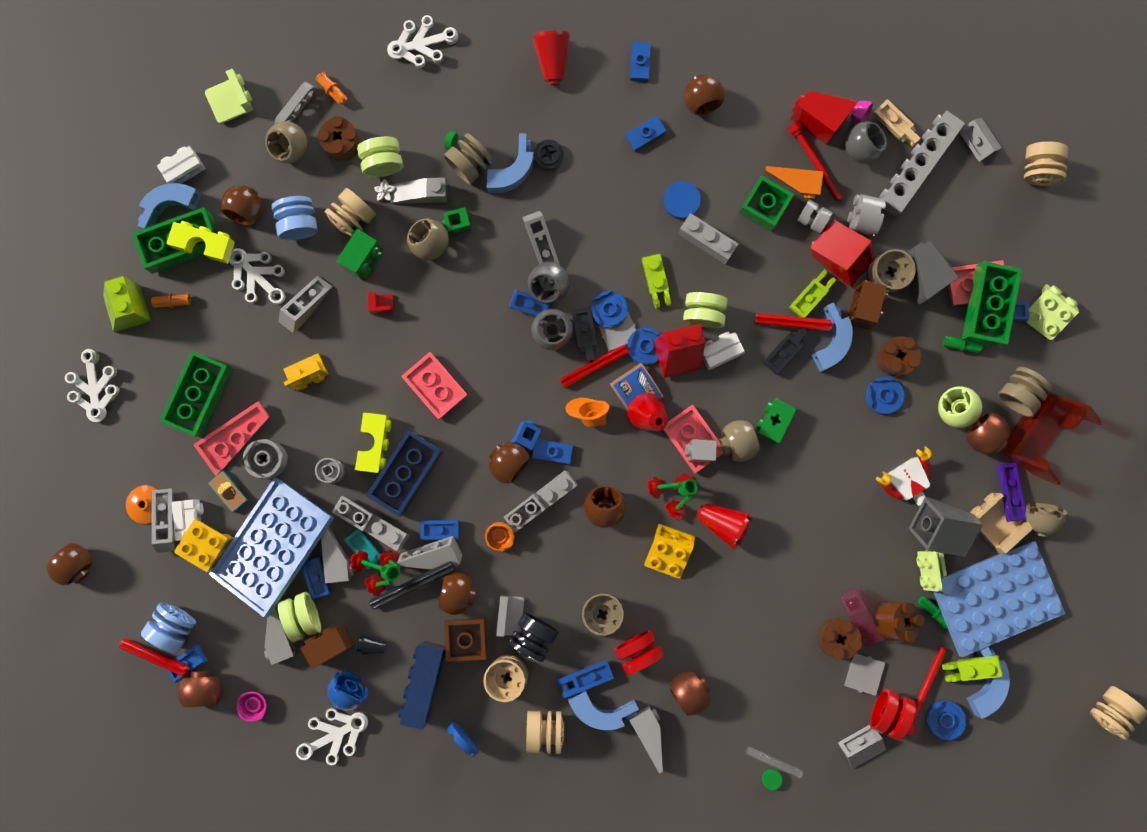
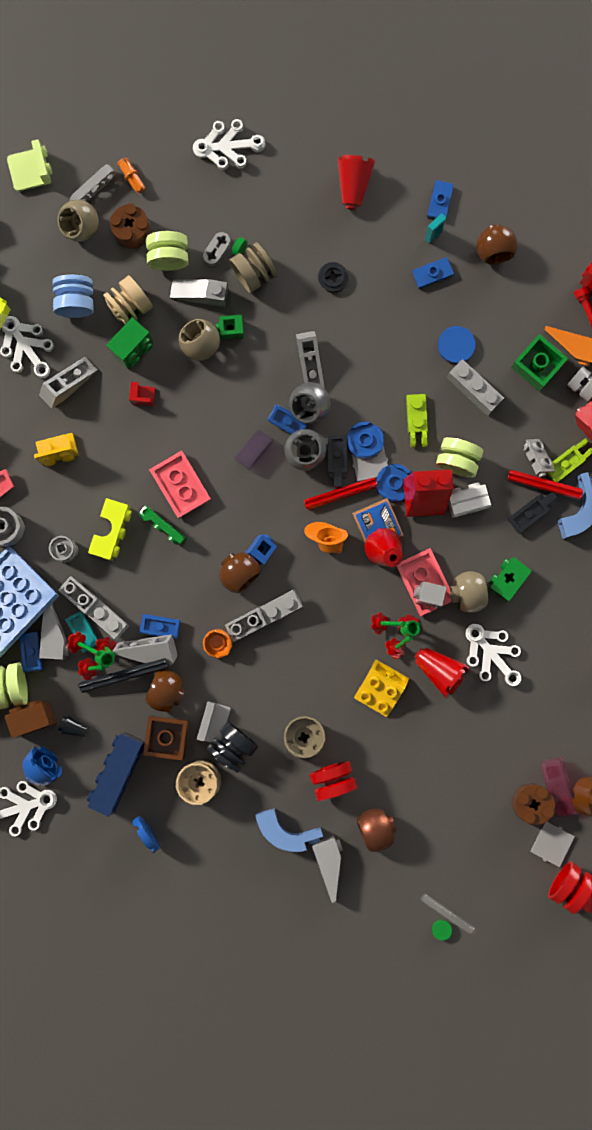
camera: 15 degrees right, 0 degrees up
(241, 205) = (23, 274): reddish brown wheel -> none
(384, 190) = (165, 285): white plant -> none
(404, 473) = (135, 565): dark blue brick -> none
(424, 429) = (162, 525): none -> green hinge
(433, 148) = (213, 246): none -> light grey beam
(501, 338) = (254, 449): none -> clear purple slope
(510, 178) = (292, 293): medium blue arch -> none
(544, 732) = (226, 842): tan wheel -> none
(552, 451) = (284, 569): blue plate -> none
(585, 678) = (276, 797): blue plate -> none
(605, 506) = (325, 632): reddish brown wheel -> none
(640, 89) = (435, 228): none -> teal tile
(770, 497) = (490, 652): none -> white plant
(777, 290) = (535, 451): none -> light grey hinge
(862, 746) = (536, 914): light grey panel -> none

